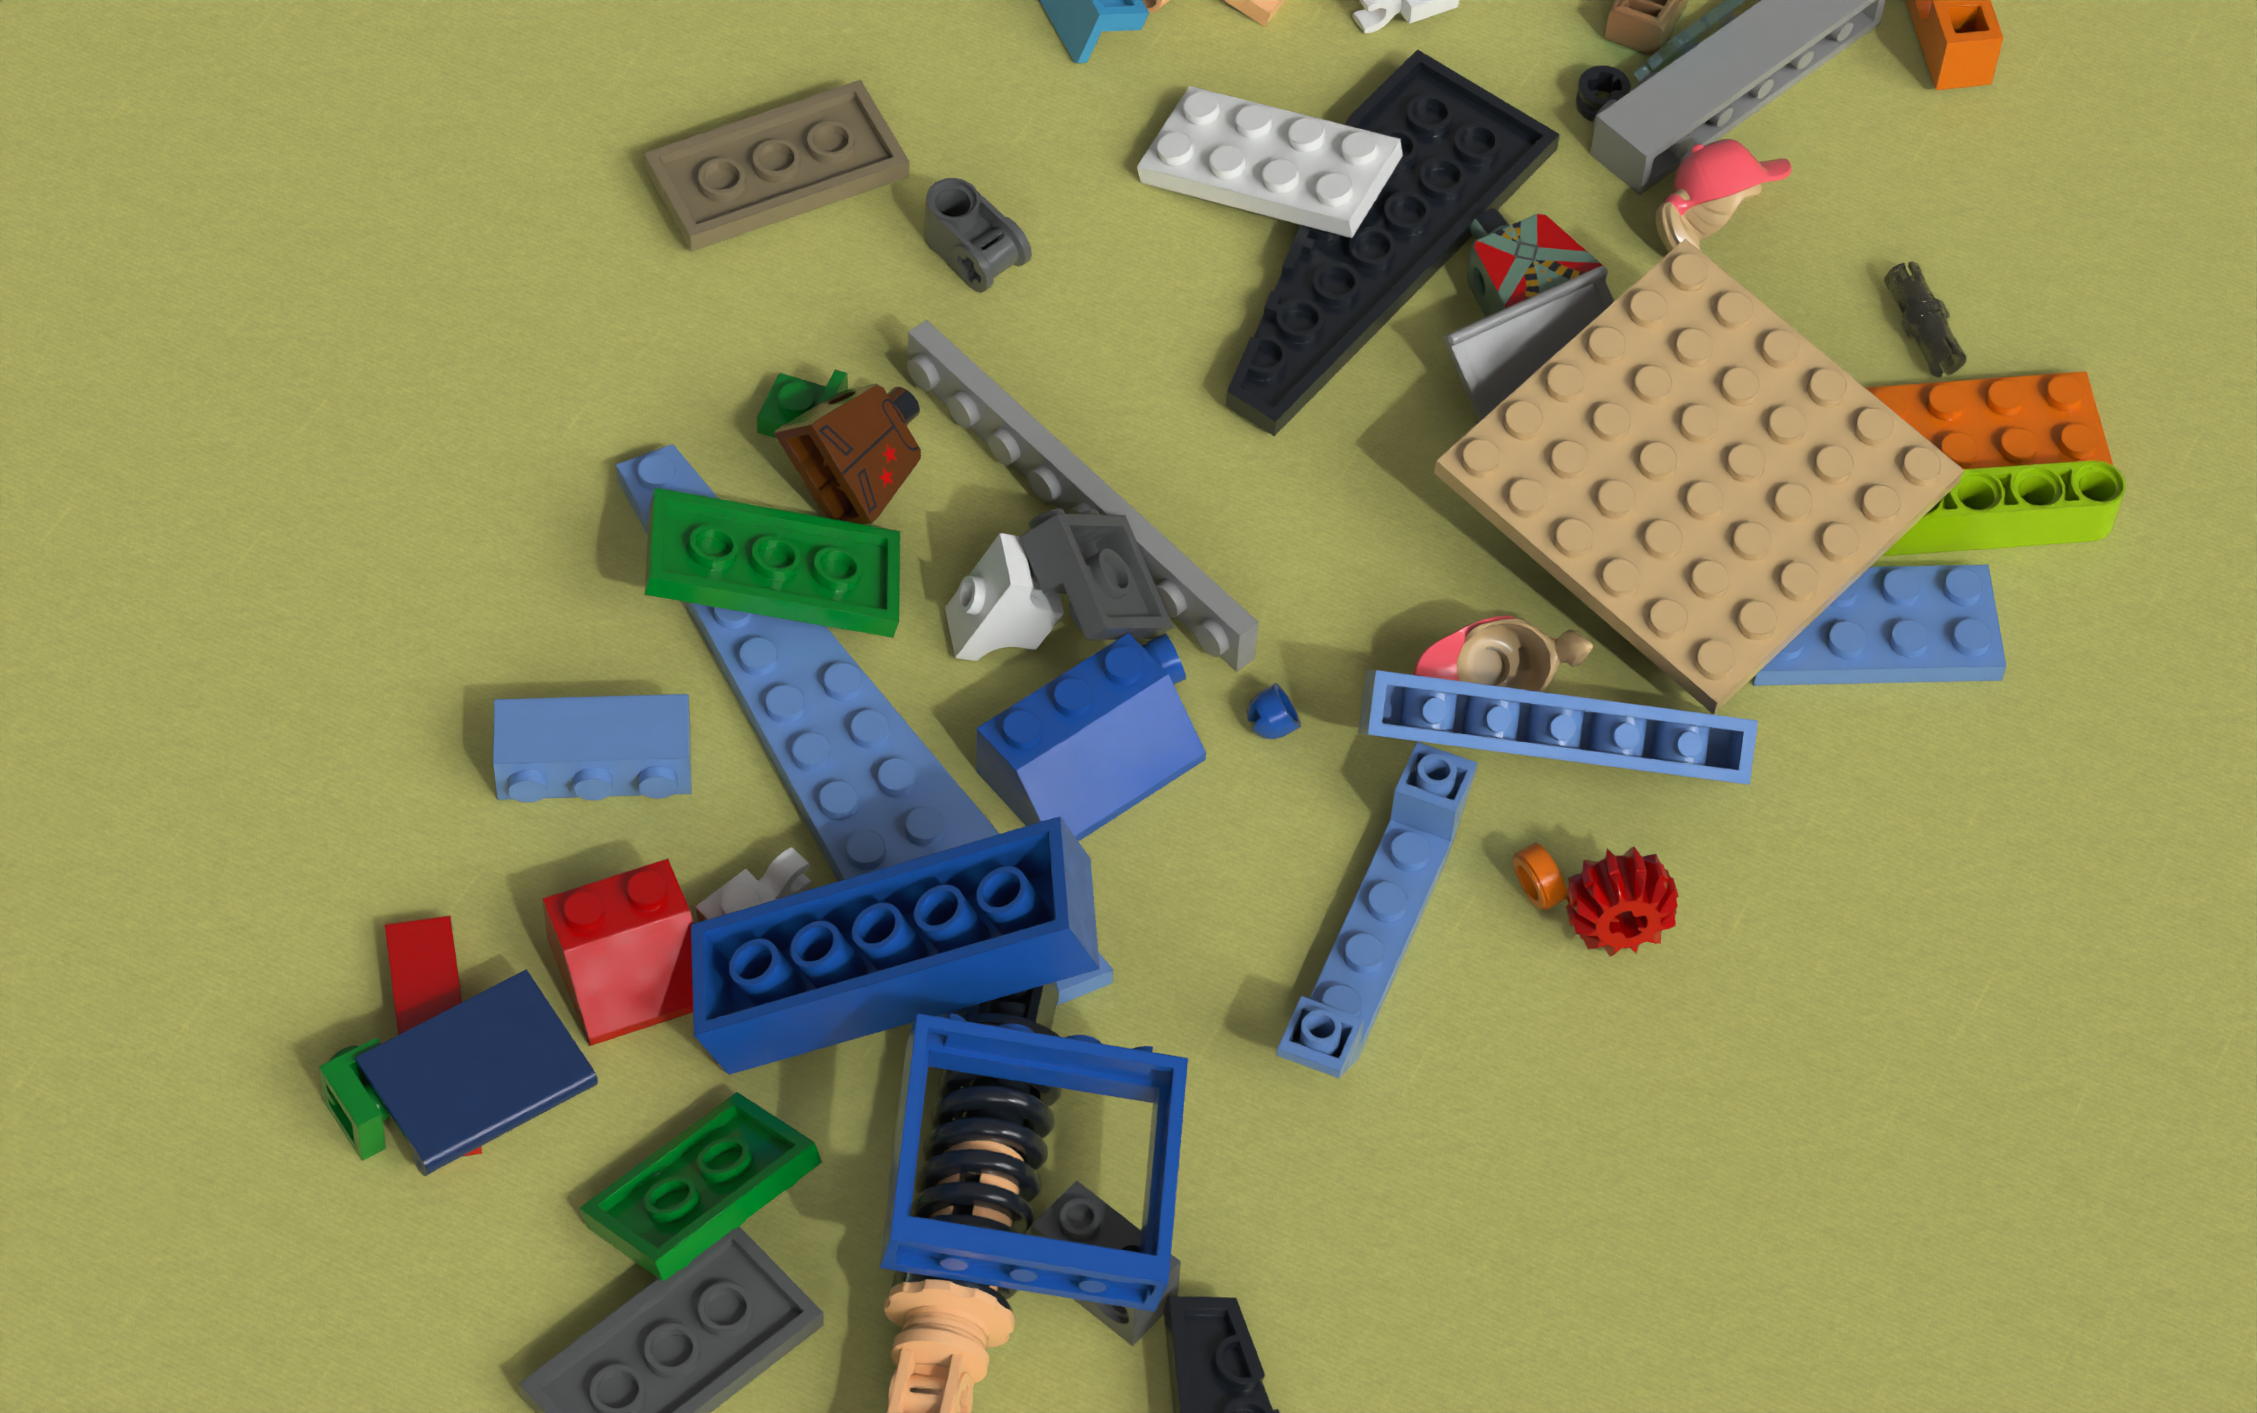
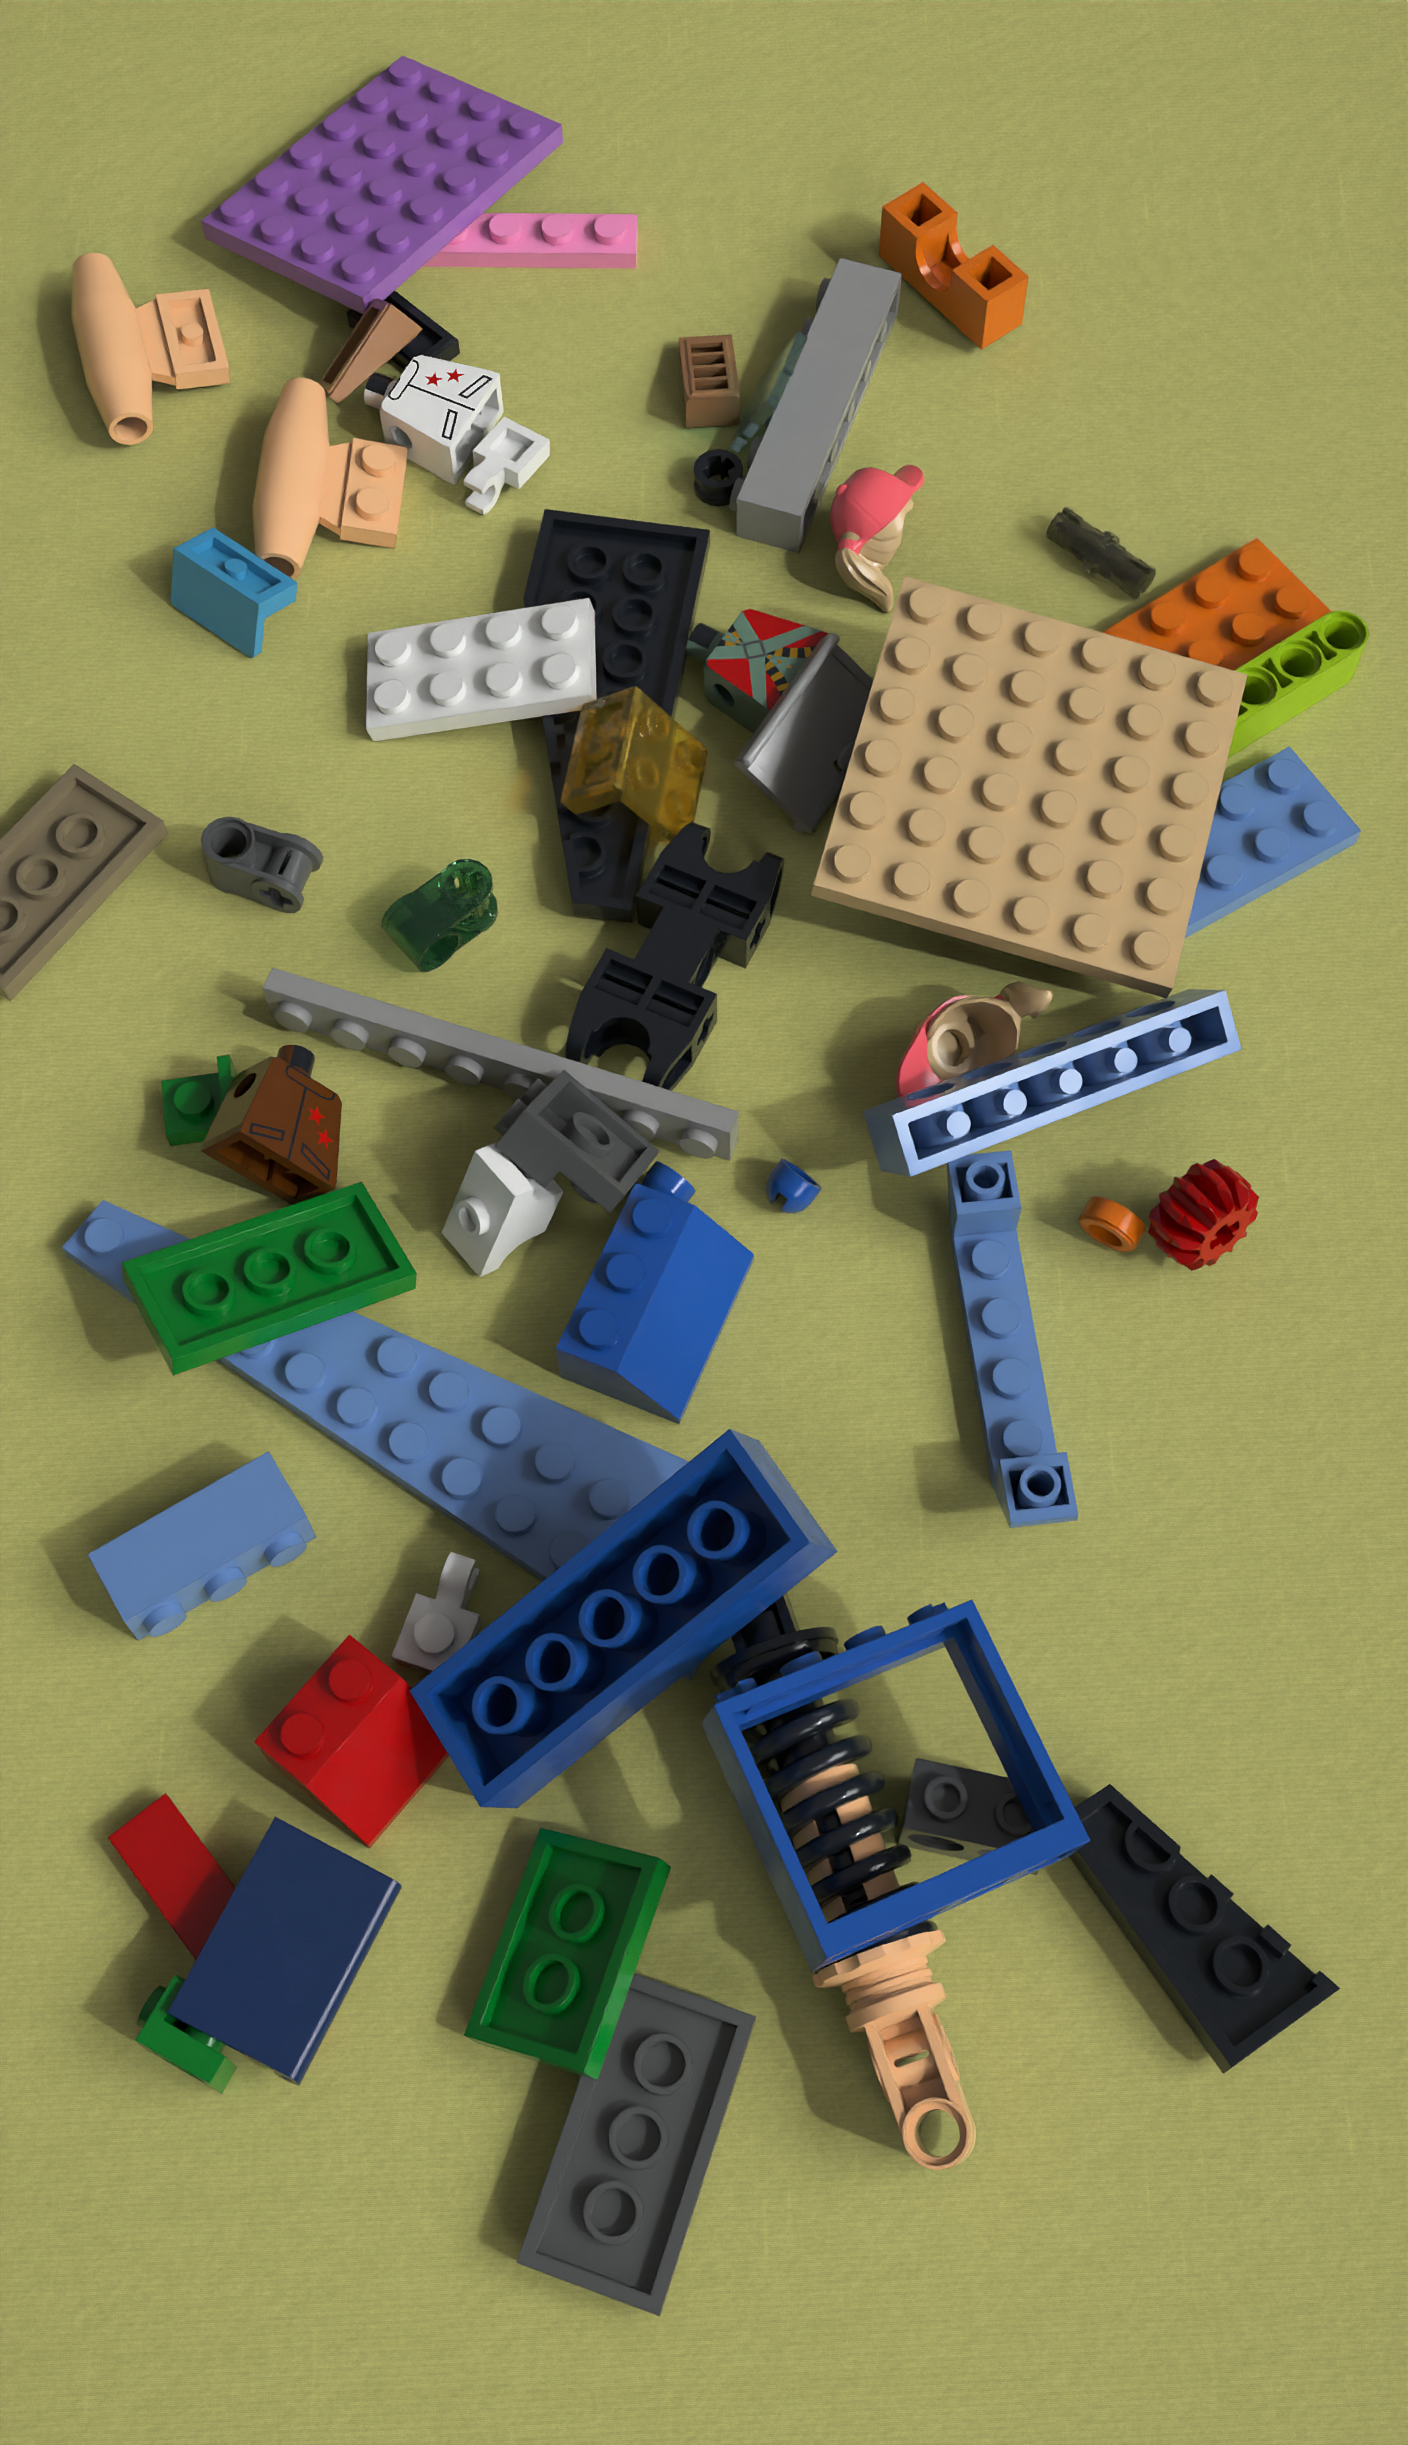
camera: 25 degrees left, 10 degrees up
(1101, 352) = (440, 917): none -> clear green piece
(1319, 462) = (659, 993): none -> black piece
(1362, 302) = (636, 756): none -> clear yellow bracket

